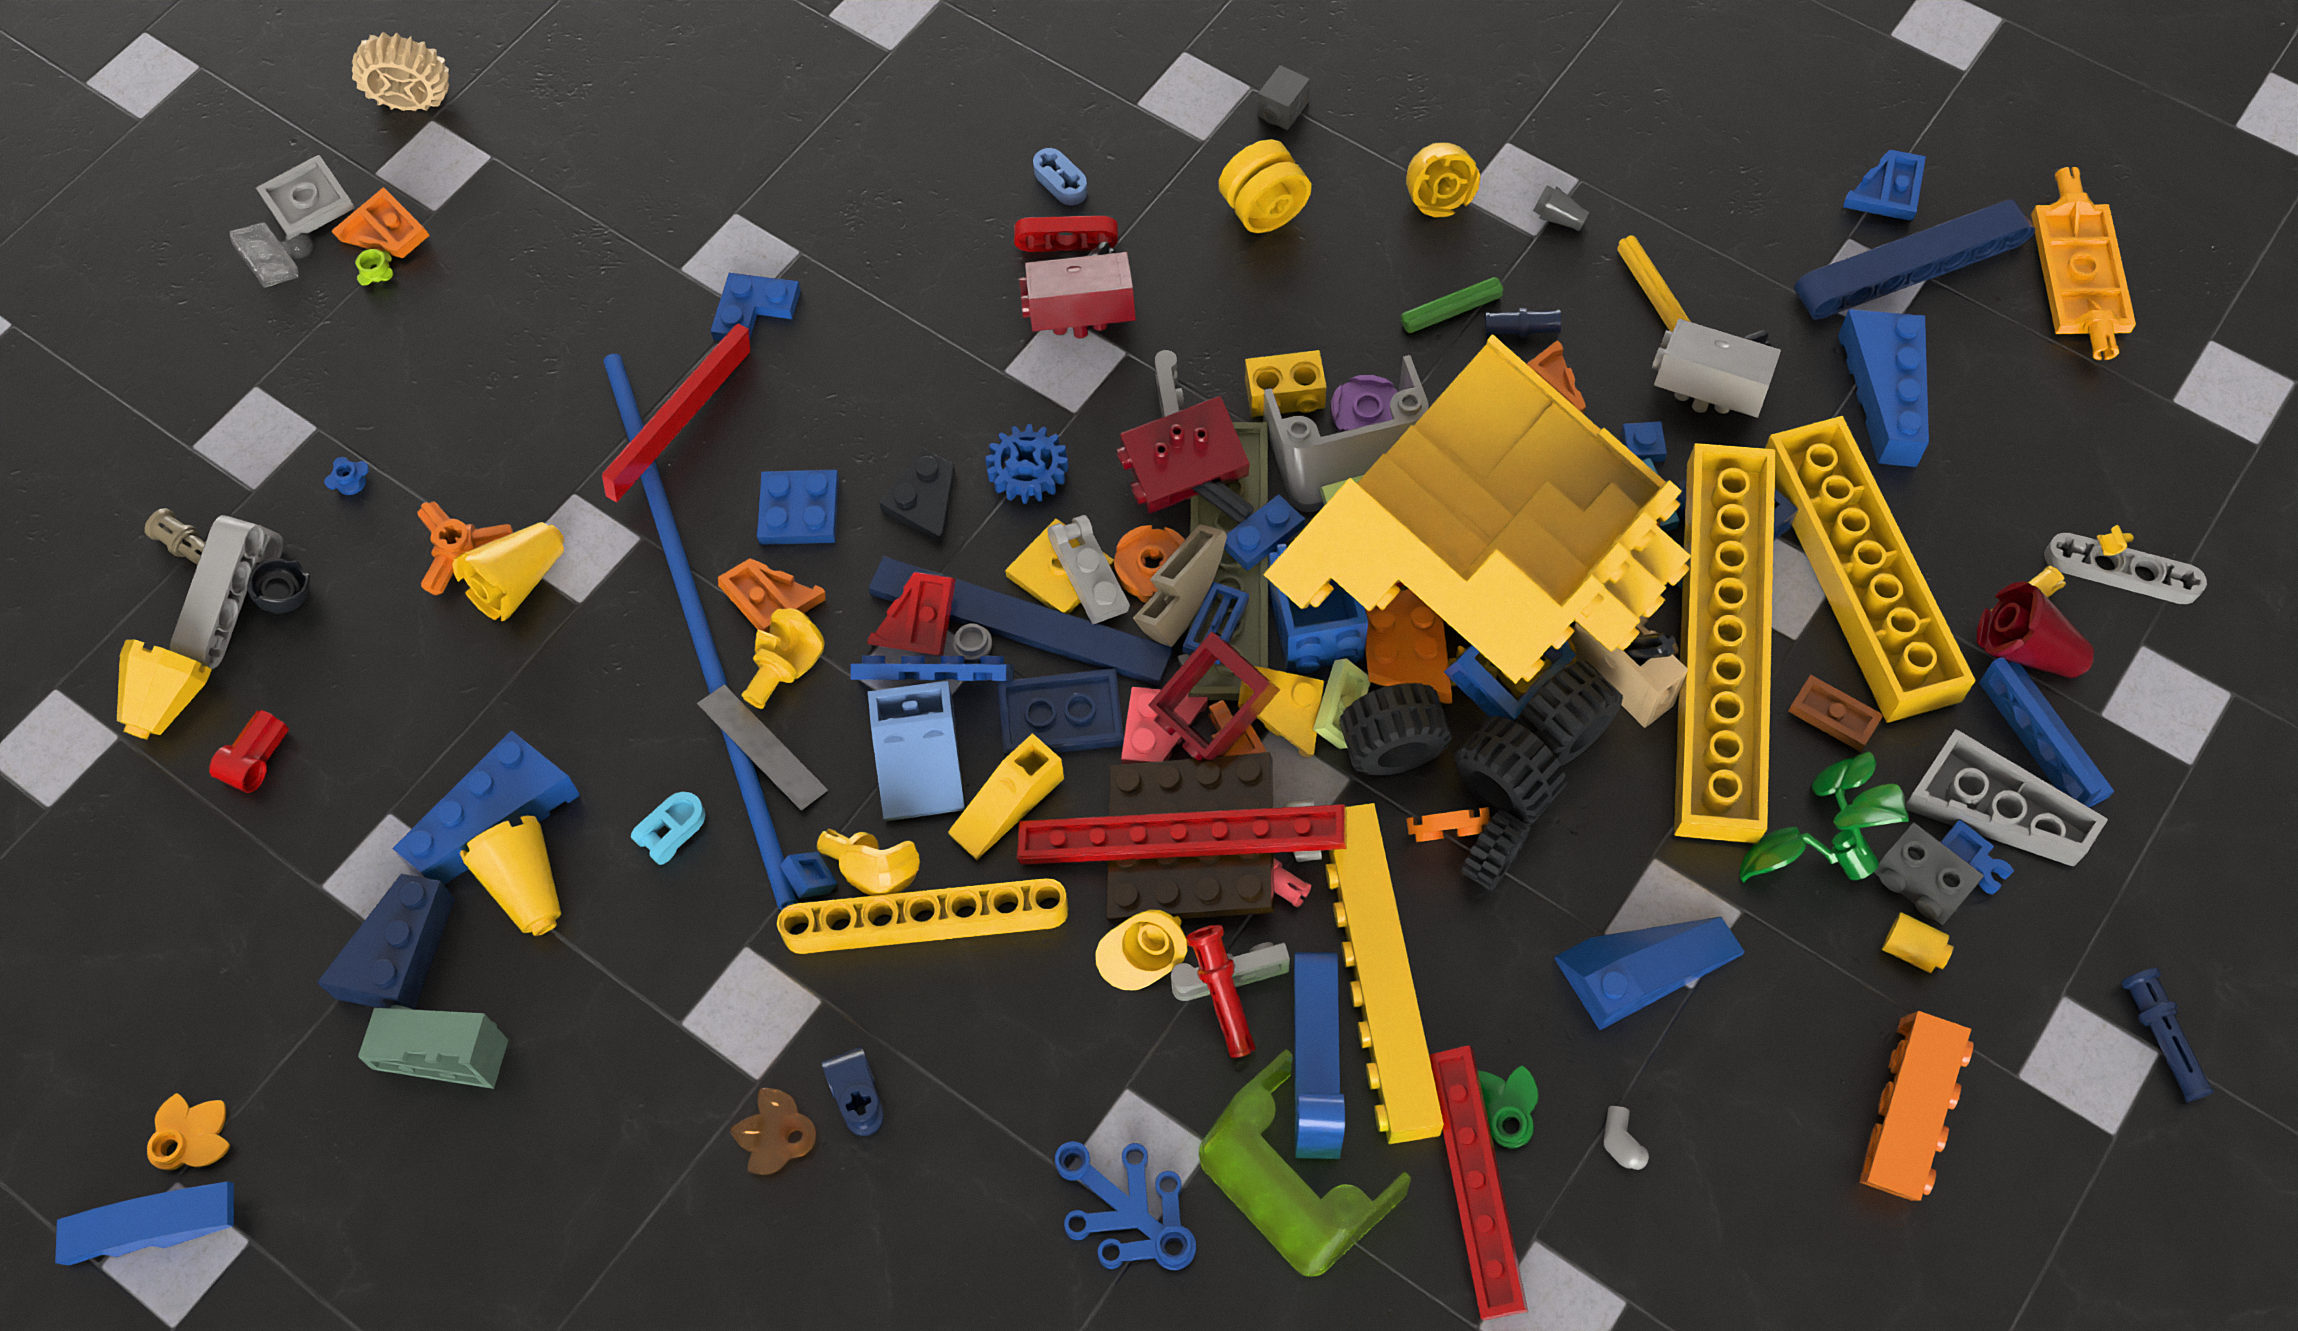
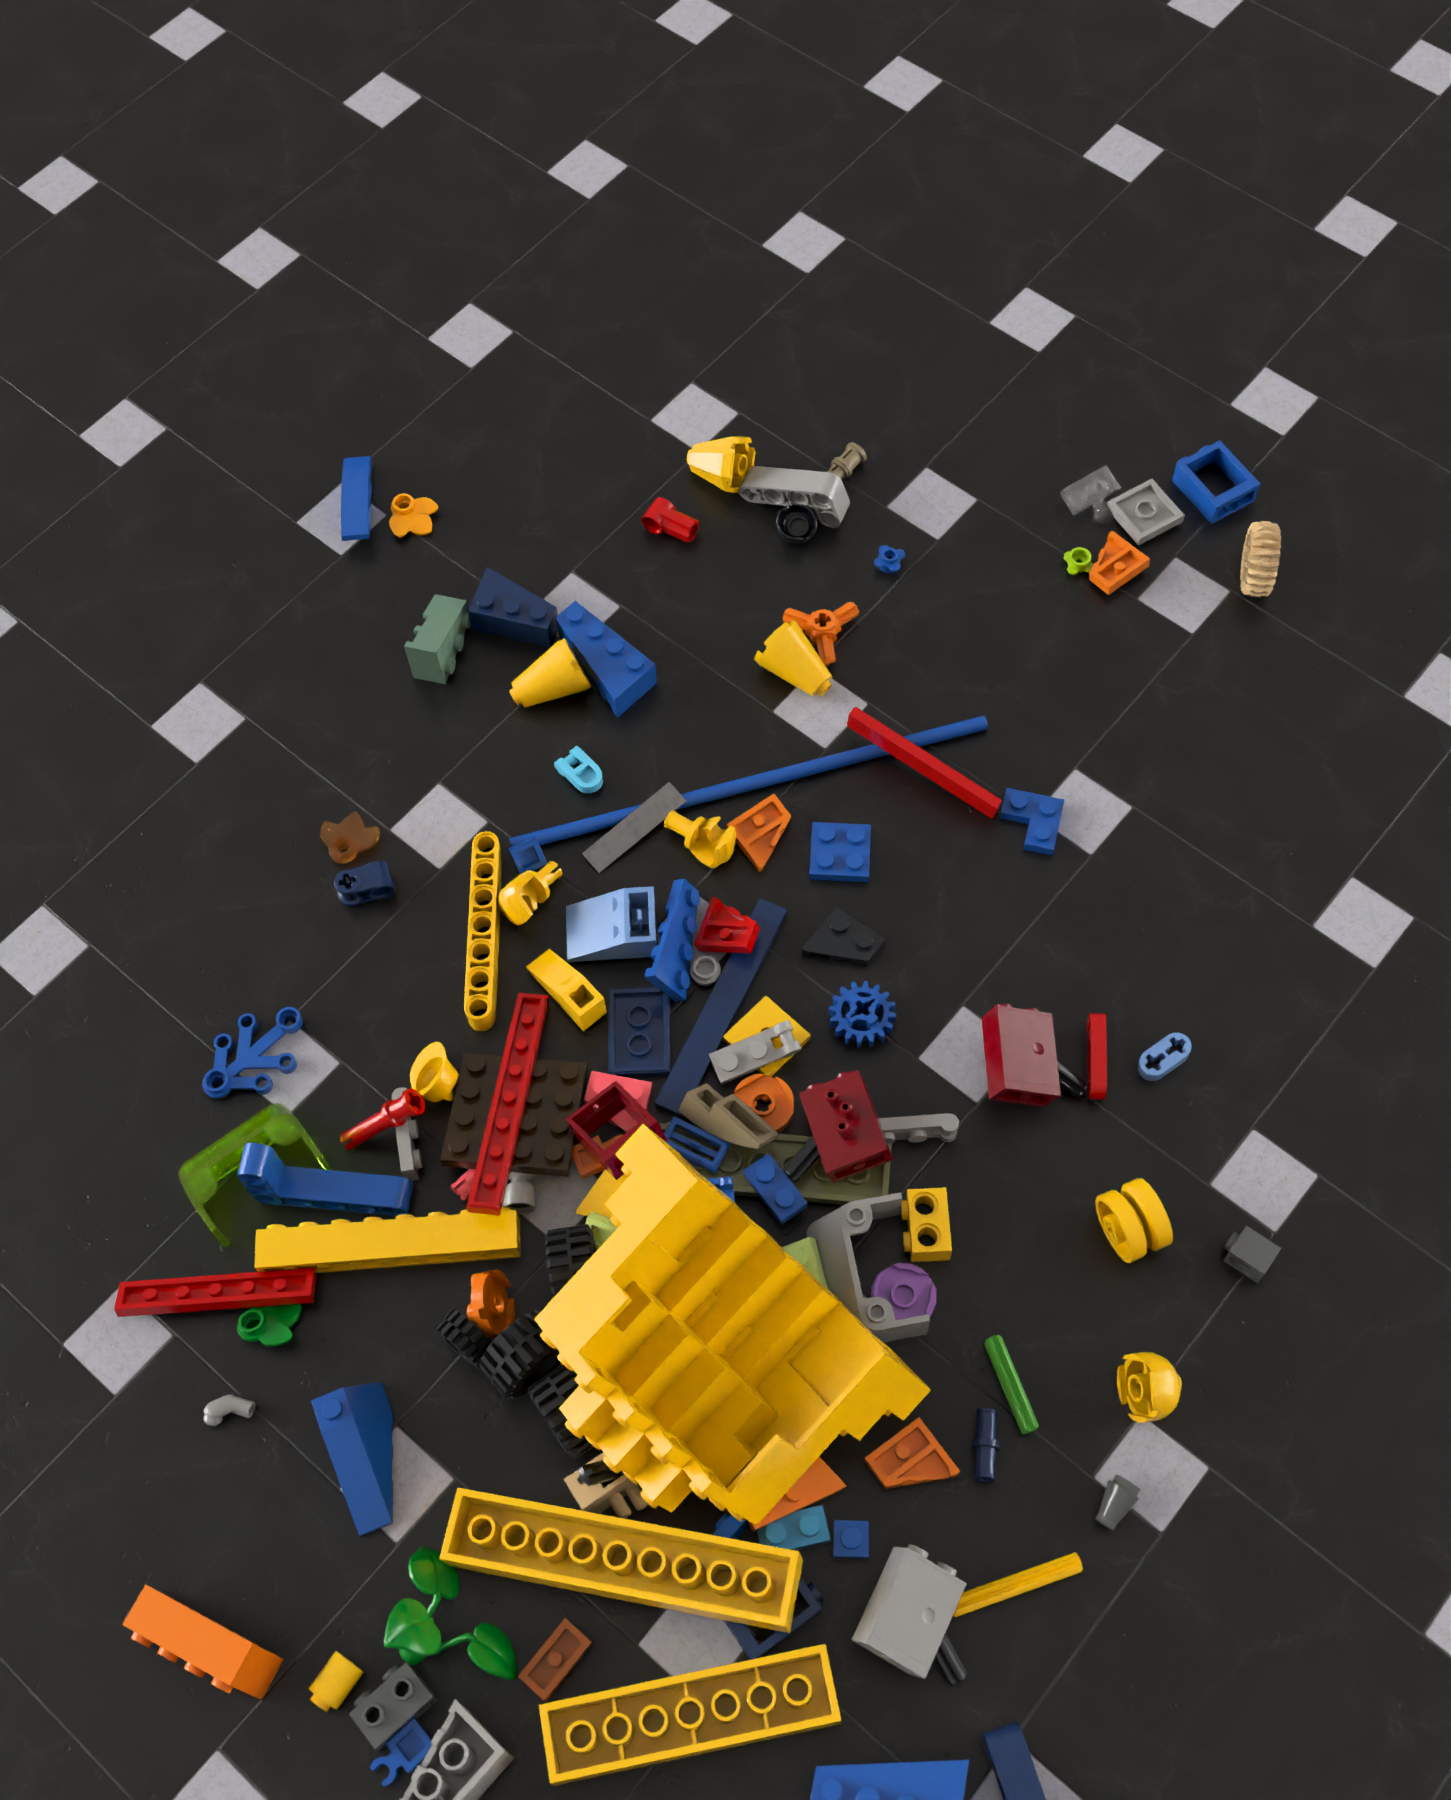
camera: 95 degrees right, 0 degrees up
(279, 144) = (1216, 507): none -> blue window

